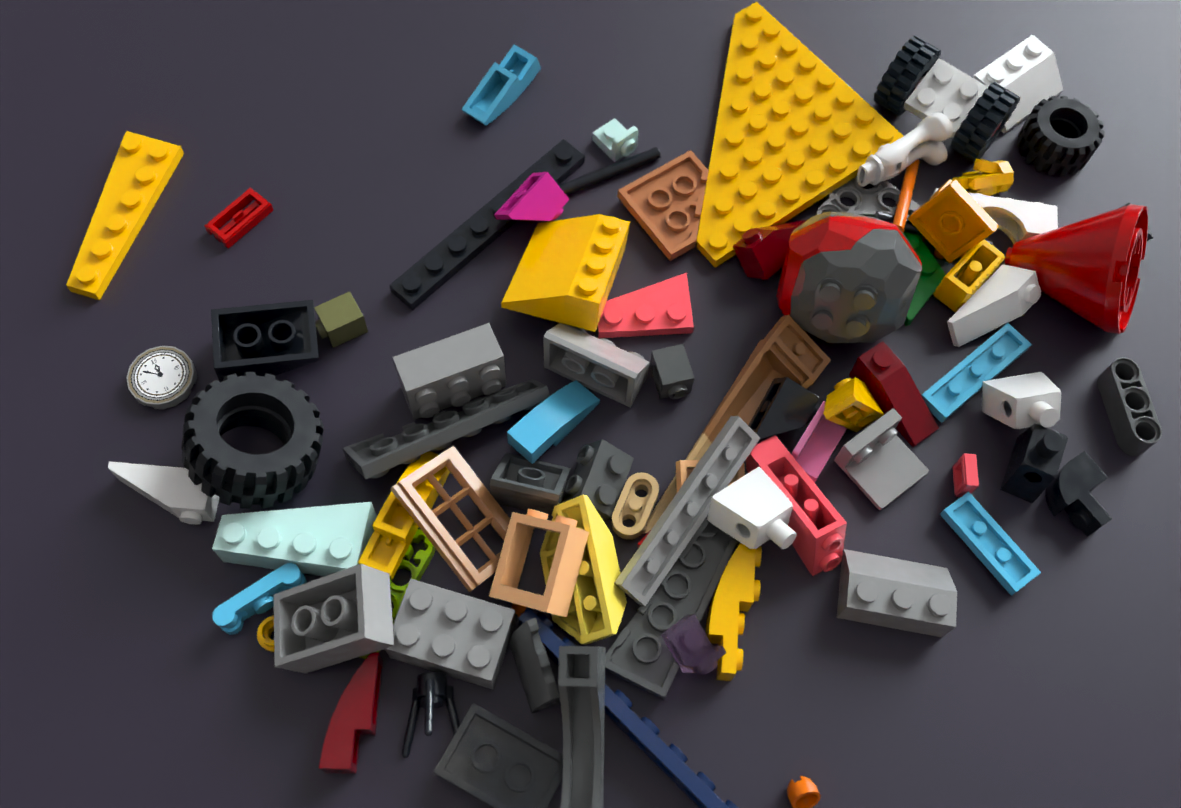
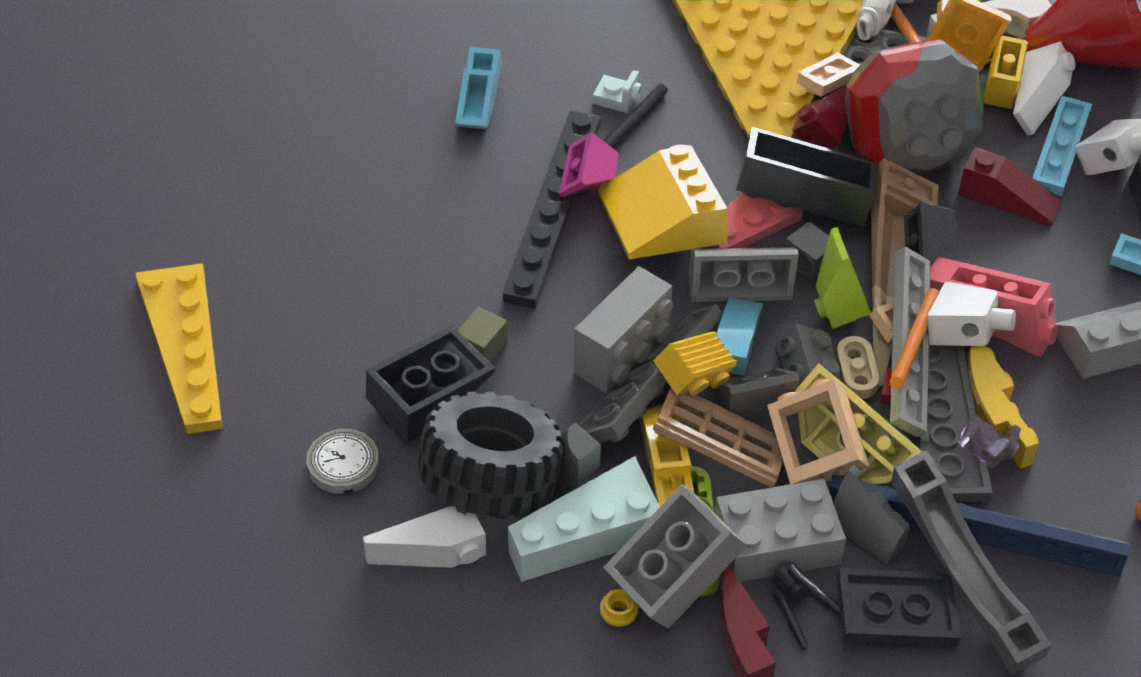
camera: 25 degrees left, 15 degrees down
(242, 221) = (303, 321): red tile -> none
(256, 598) = (584, 584): medium azure plate -> none
(322, 477) = (579, 458): none -> dark grey slope
(476, 440) = (695, 364): none -> yellow brick
(669, 203) = (705, 121): nougat plate -> none
(669, 419) = (839, 286): none -> lime slope
(683, 515) = (913, 341): none -> orange bar
(708, 299) = (807, 177): none -> black piece
(796, 207) = (827, 75): none -> light nougat plate
(817, 444) = (972, 245): bright pink panel -> none
(852, 405) = (985, 205): yellow slope -> none
(881, 461) = (1034, 244): light grey bracket -> none
(965, 475) = (1109, 223): coral tile -> none

